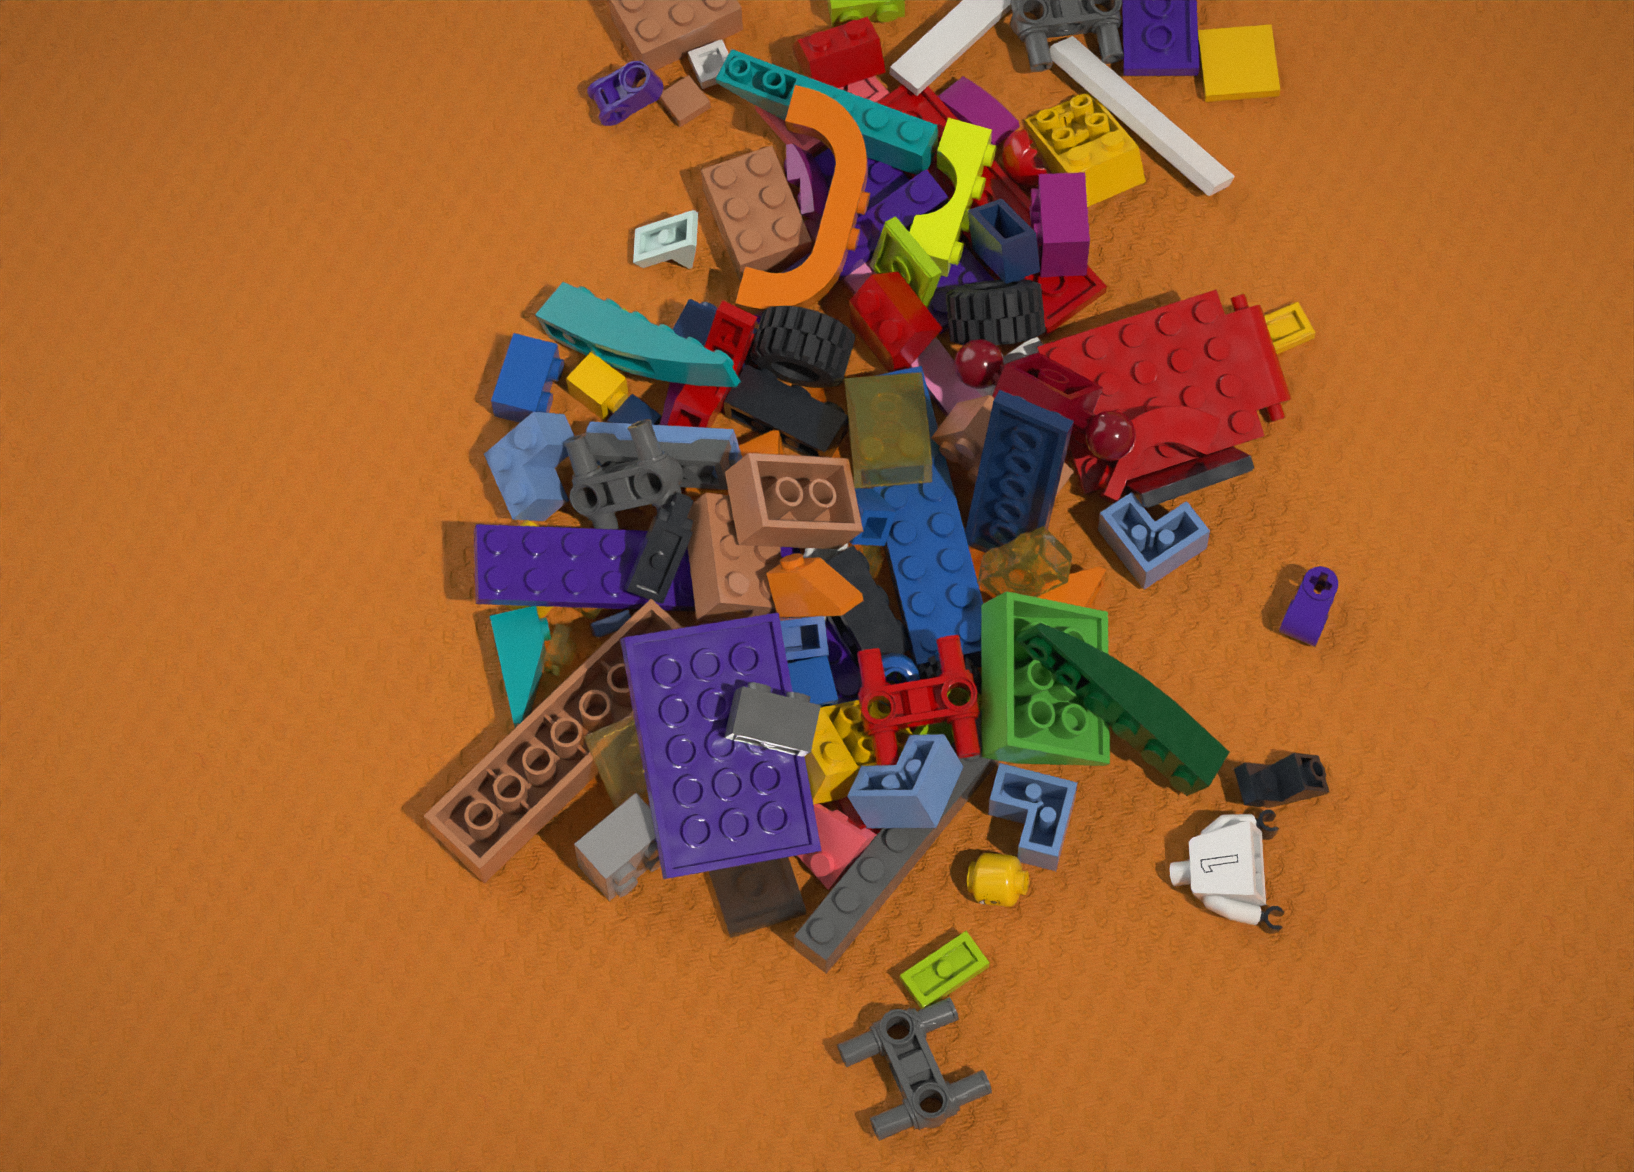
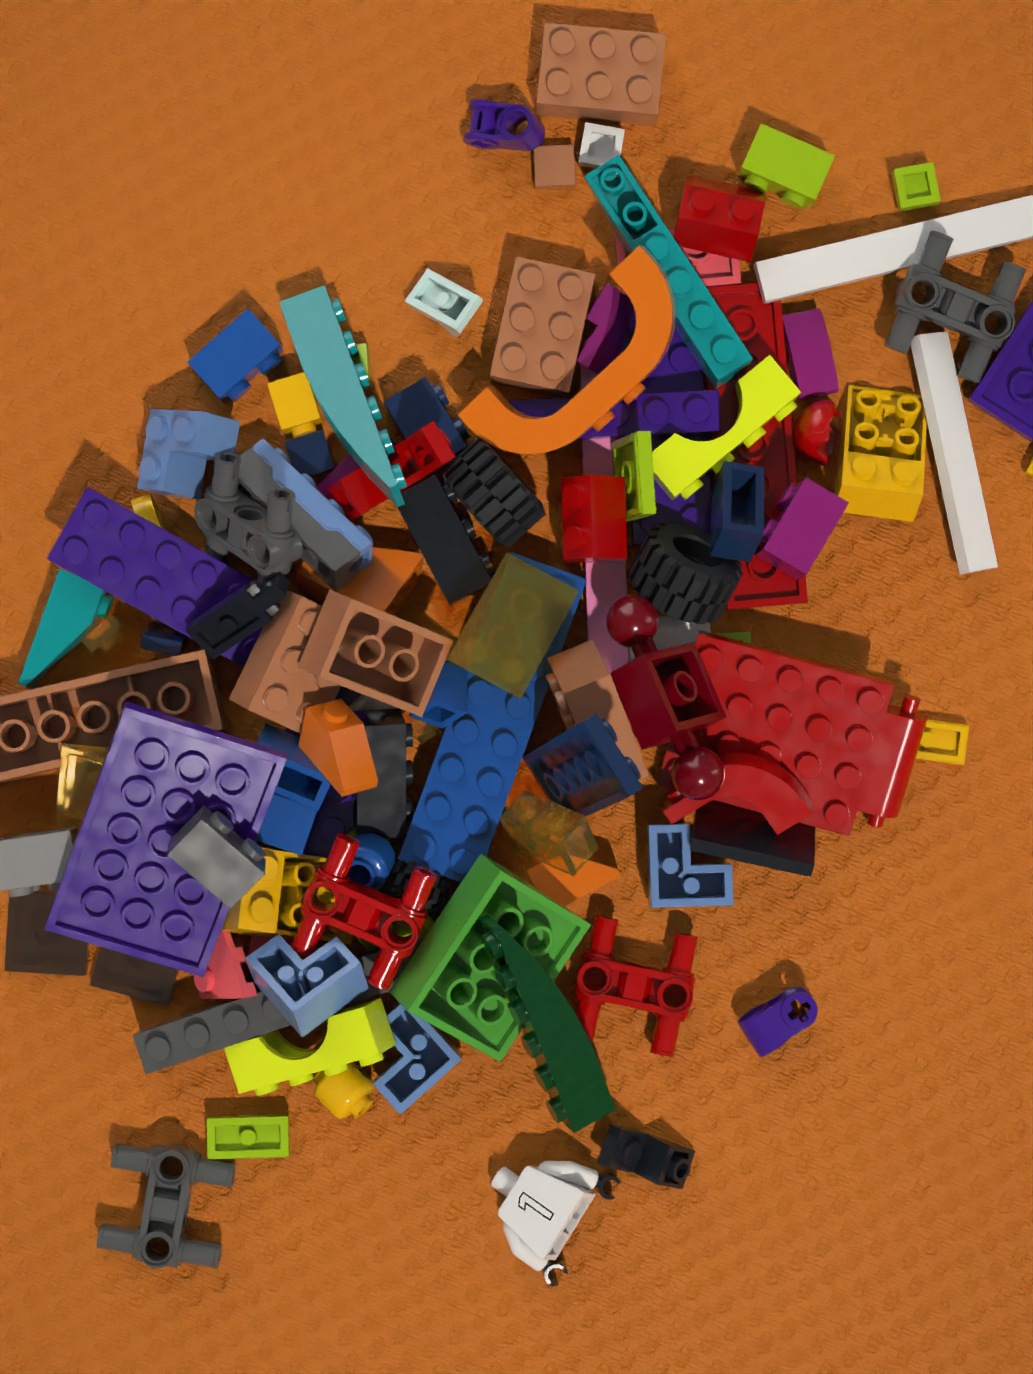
camera: 30 degrees right, 20 degrees up
(666, 918) = (35, 949): none -> clear smoke tile
(977, 813) = (351, 1036): none -> neon yellow arch
(1183, 648) = (635, 984): none -> red piece

